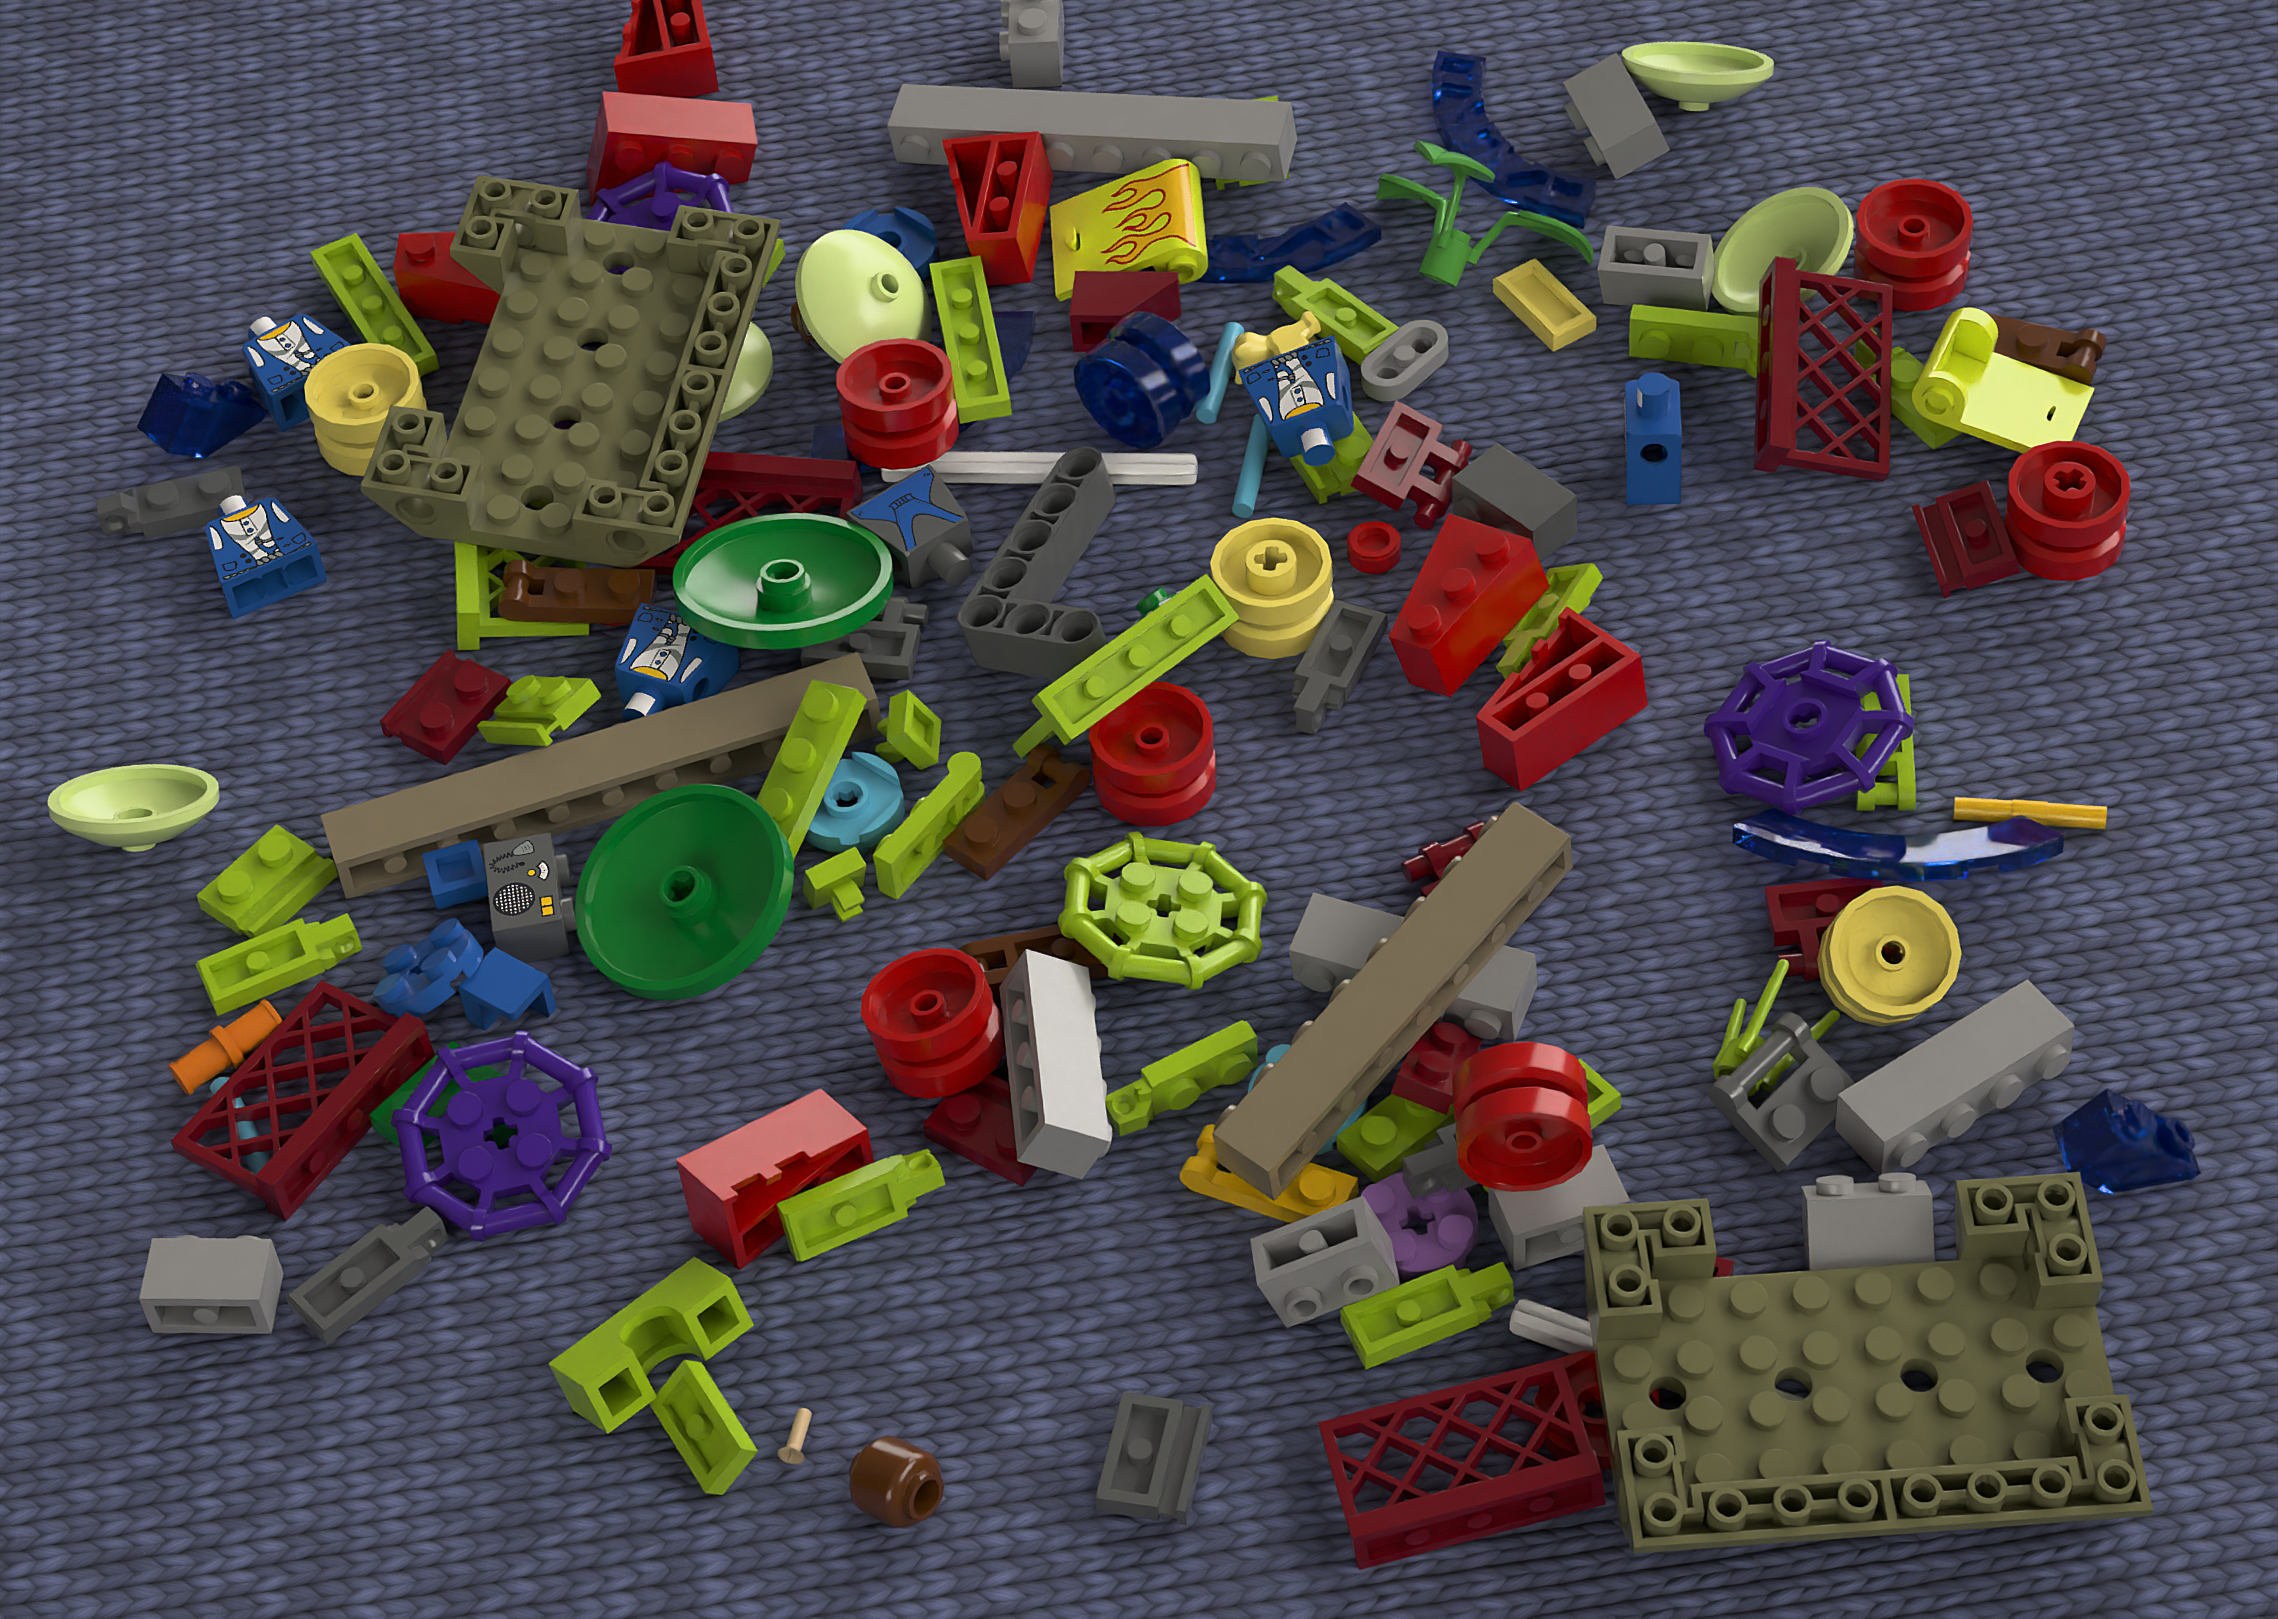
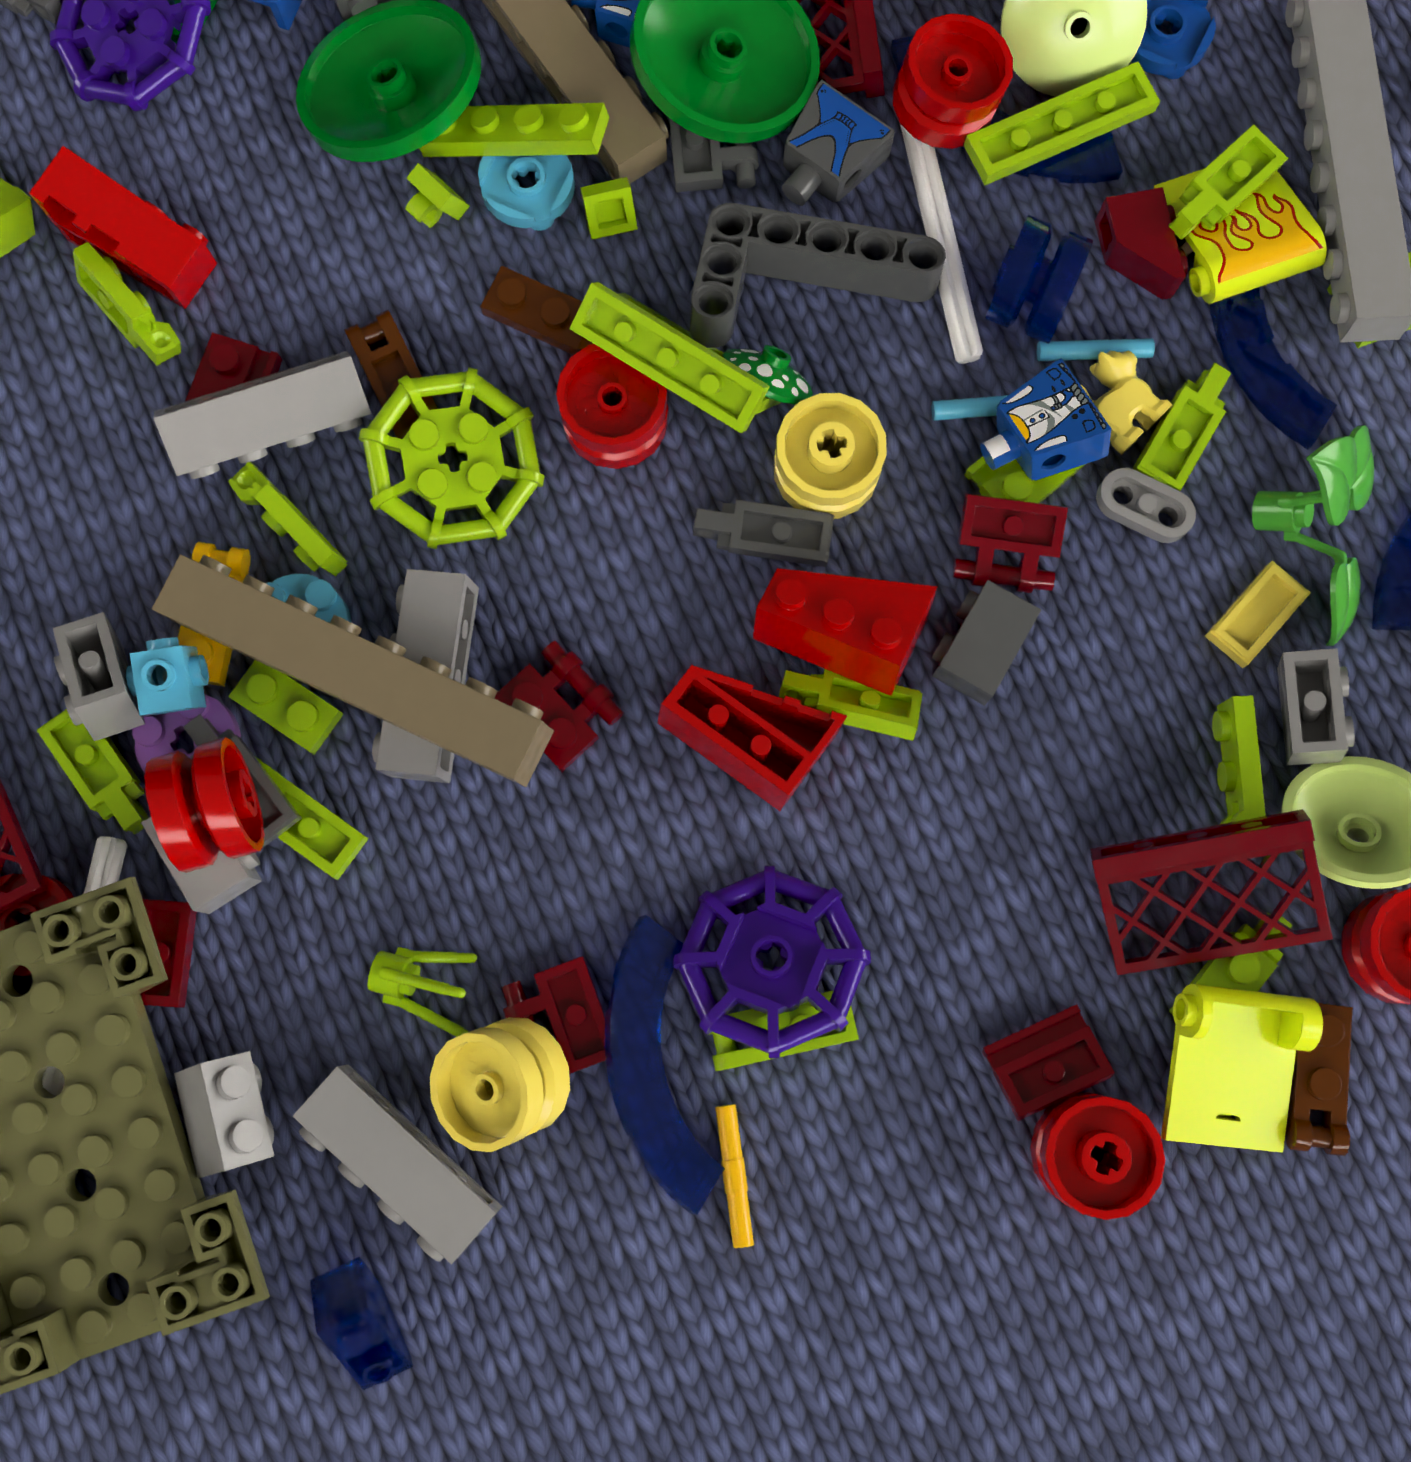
camera: 70 degrees right, 30 degrees up
(919, 839) = (515, 250): lime plate -> none
(934, 1022) = (286, 306): red wheel -> none
(1001, 200) = (1220, 101): red wedge -> none
(1091, 219) = (1228, 181): none -> lime hinge
(1349, 1171) = (167, 677): none -> medium azure brick
(1374, 547) = (917, 533): red tile -> none
(1432, 1064) = (325, 721): dark red plate -> none
(1652, 417) = (1088, 749): blue torso -> none
(1797, 1107) = (354, 1027): dark grey plate -> none

